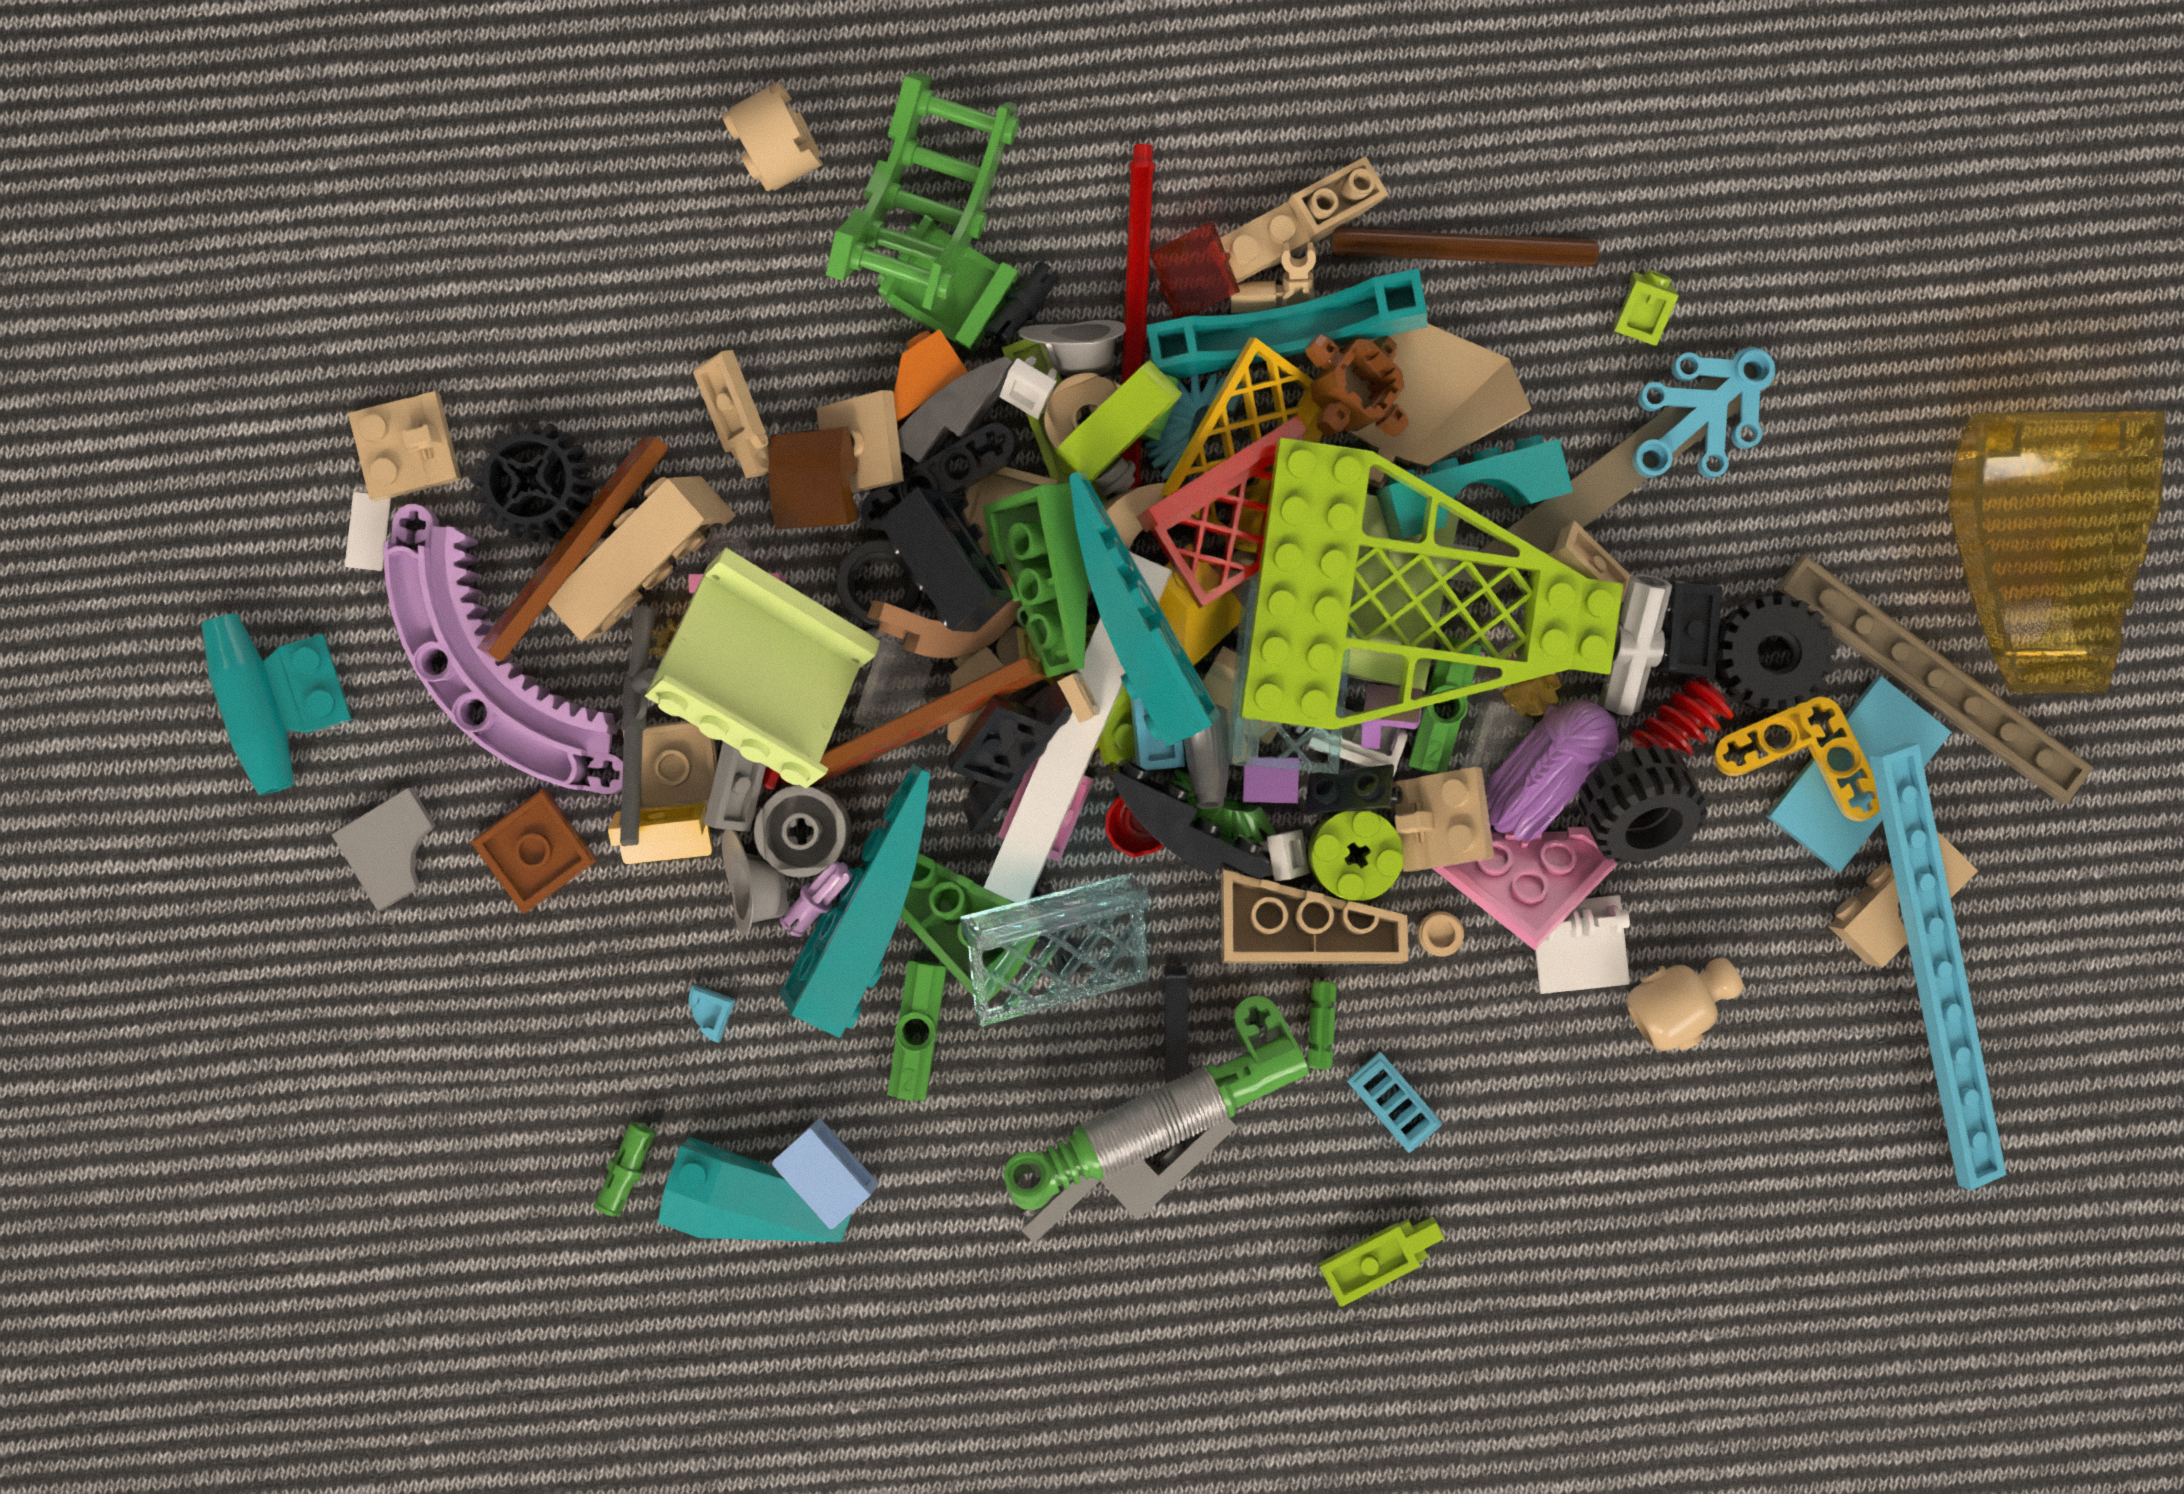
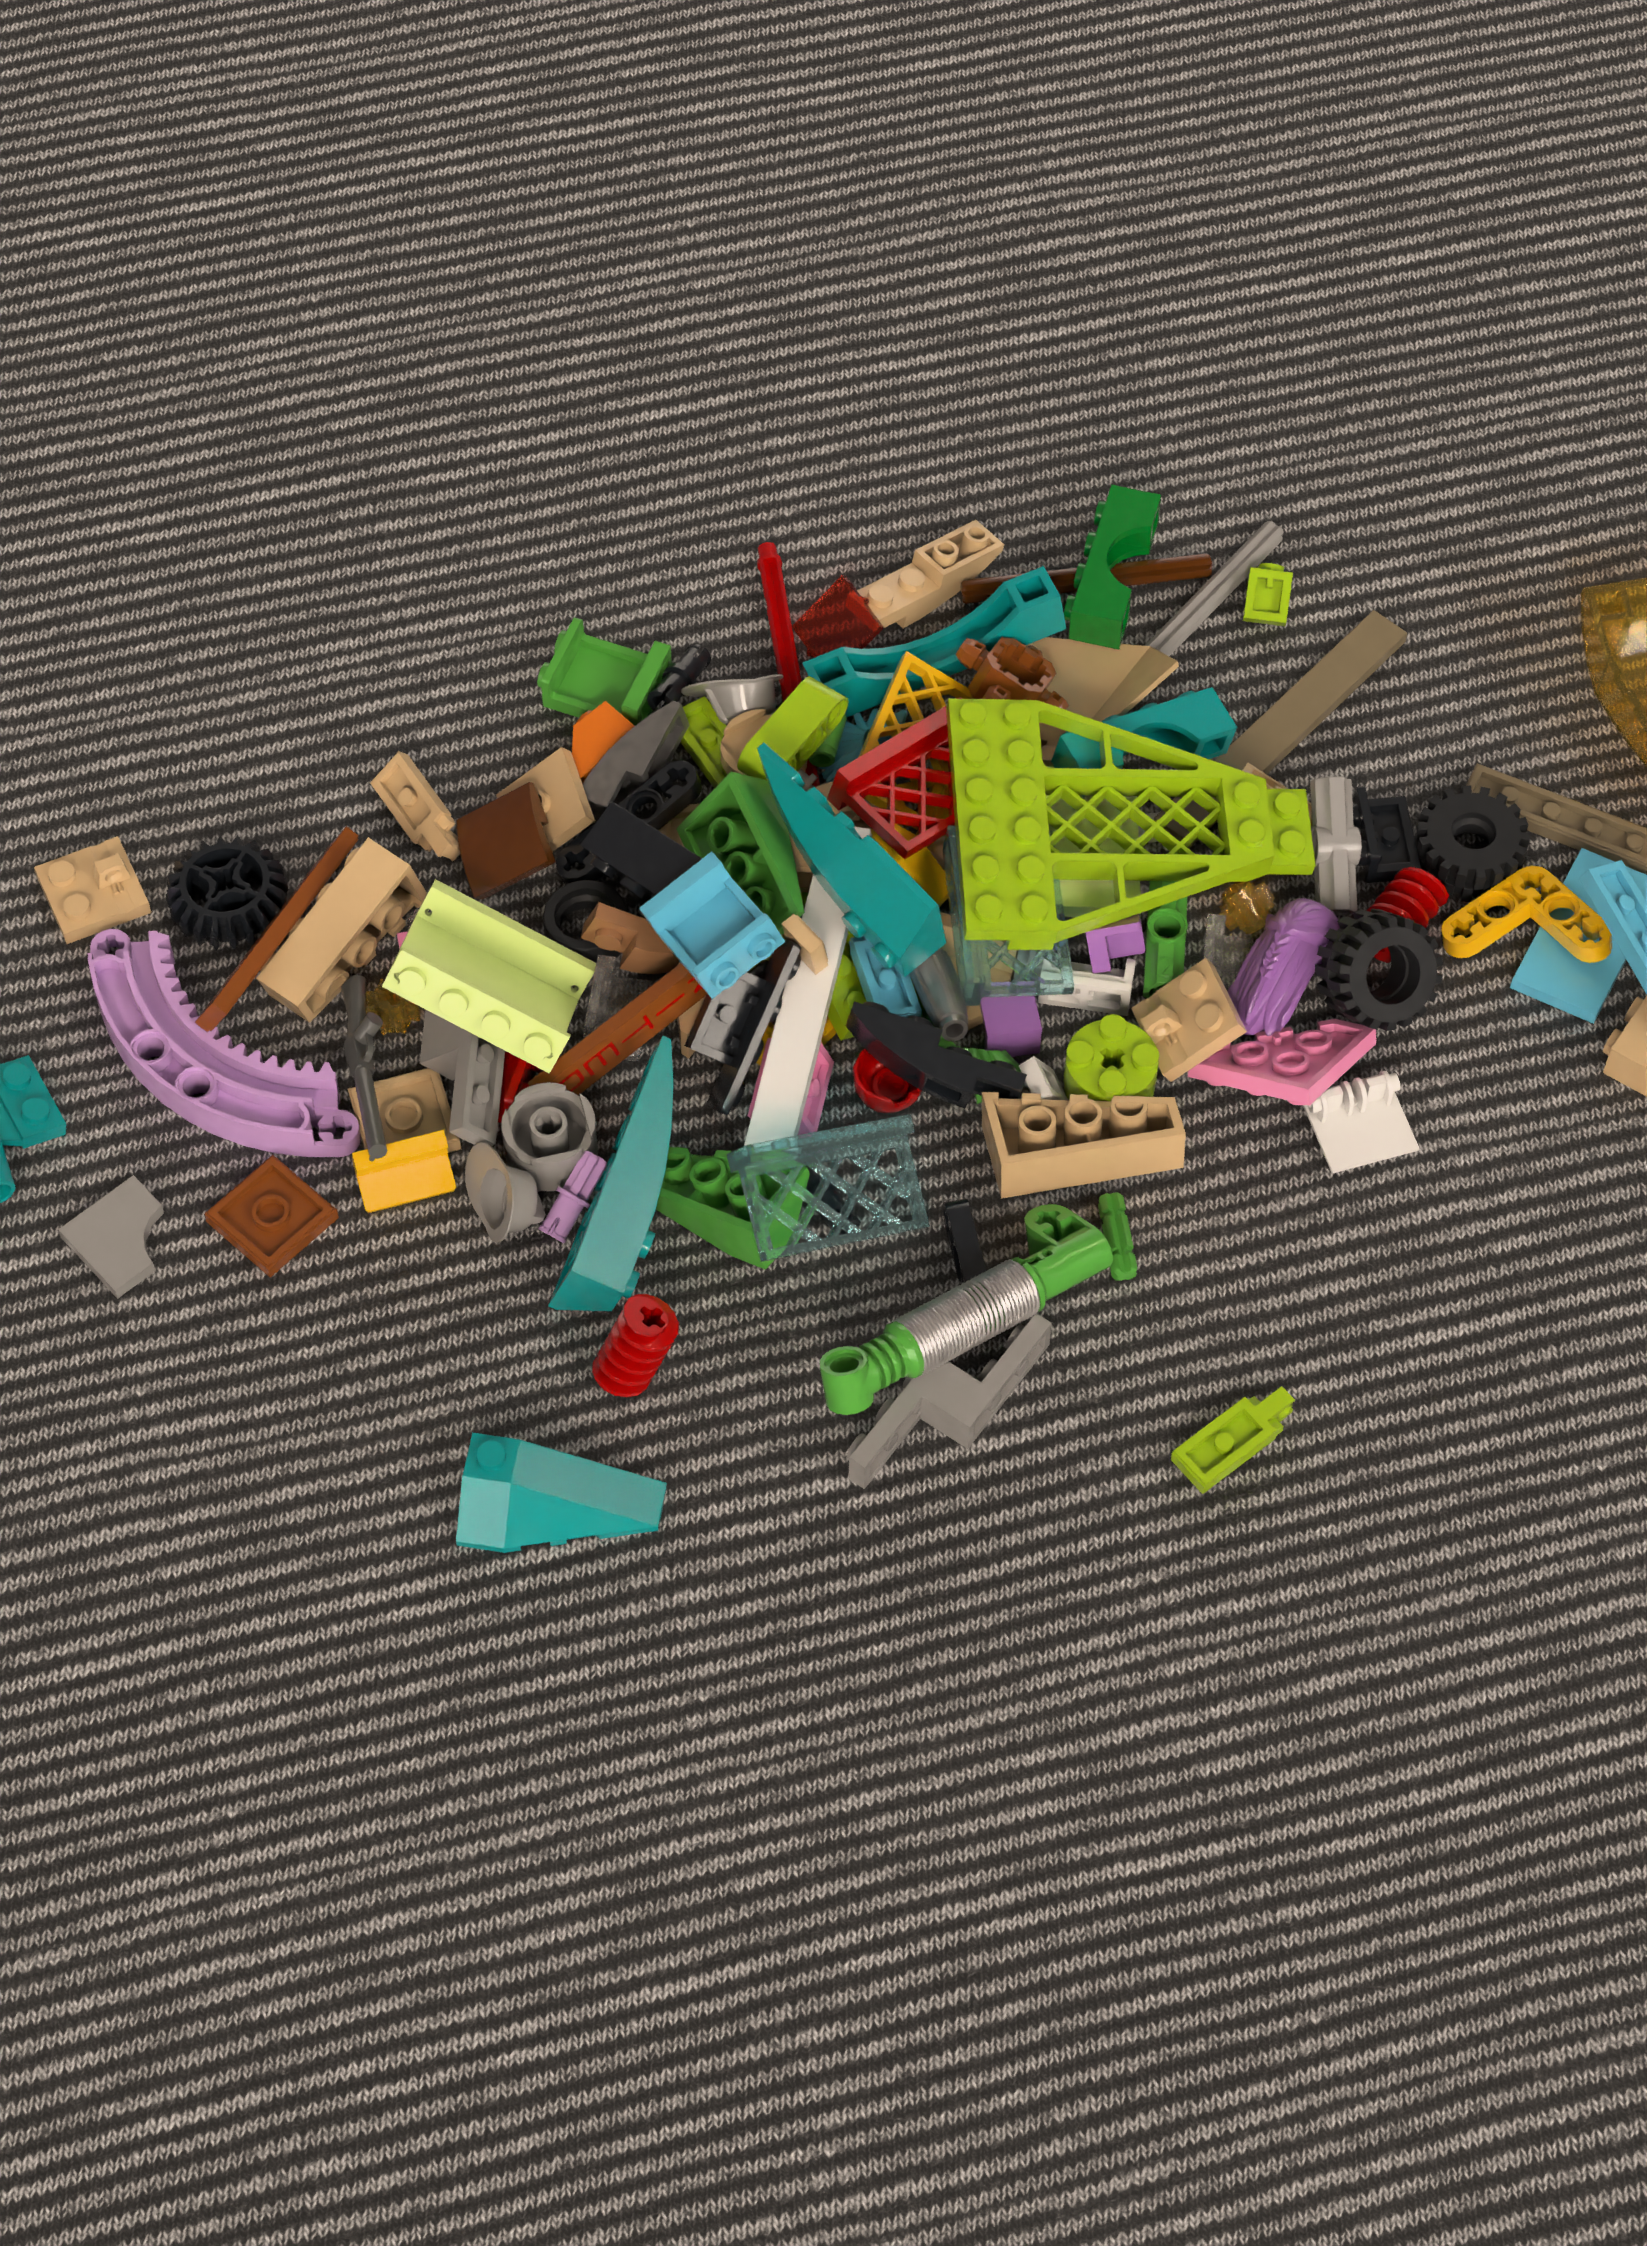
camera: 15 degrees left, 30 degrees down
(367, 532) = (61, 971): white sticker -> none
(624, 1169) = (412, 1491): bright green pin -> none
(710, 1011) = (479, 1331): medium azure tile -> none
(774, 137) = (420, 581): tan brick -> none
(825, 1174) = (629, 1448): light blue panel -> none
(846, 1078) = (635, 1346): none -> red piece
(866, 227) = (525, 627): bright green fence -> none
(914, 1058) = (700, 1325): bright green piece -> none
(989, 674) = (711, 925): none -> medium azure panel
(1028, 387) = (699, 732): white tile -> none
(1266, 295) = (934, 621): tan bar -> none
(1352, 790) = (1106, 999): black hinge -> none
(1416, 1134) = (1214, 1313): medium azure slope -> none
(1440, 933) = (1216, 1138): tan tile -> none
(1519, 207) = (1124, 530): none -> green arch
(1592, 288) = (1217, 588): none -> light grey axle
(1679, 1005) = (1471, 1145): tan piece -> none
(1709, 408) = (1345, 658): medium azure plant -> none

